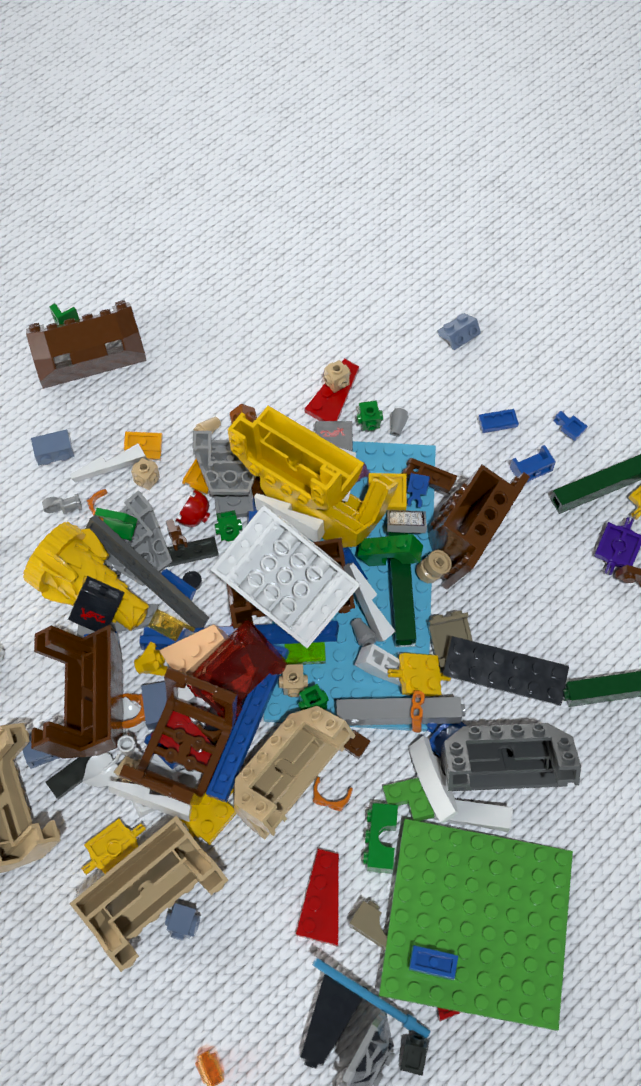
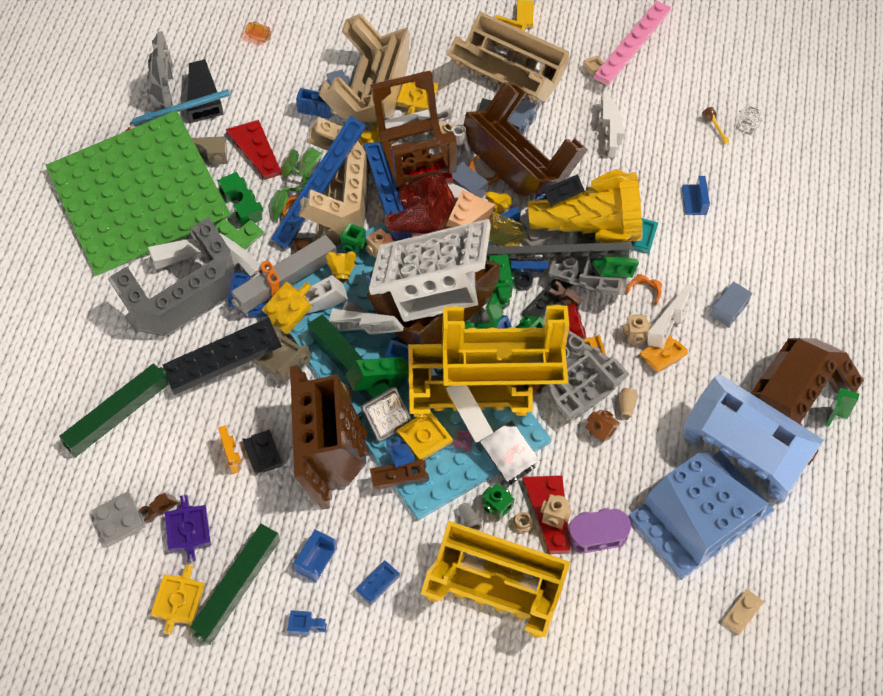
camera: 140 degrees right, 5 degrees down
(53, 504) = (674, 269): light grey connector -> none
(141, 299) = (749, 434): none -> light blue wedge
(209, 592) = (505, 284): none -> green hinge
(227, 908) = (312, 104): none -> blue brick
(230, 319) = (699, 511): none -> medium blue wedge
(264, 258) = (743, 611): none -> tan plate
(301, 774) = (320, 179): none -> blue plate
(301, 794) = (307, 161): none -> bright green plant
(311, 354) = (599, 530): none -> medium lavender brick
(343, 682) = (341, 264): none -> yellow rock
(360, 393) = (522, 516): none -> tan plate
(409, 360) = (499, 578): none -> yellow wedge
(414, 1054) = (134, 105): pearl dark grey bracket -> none
(433, 962) = (151, 139): blue plate -> none
(460, 330) = (486, 659): sand blue bracket -> none
(520, 573) = (262, 452): none -> black plate
(550, 578) = (228, 445): none -> light orange plate

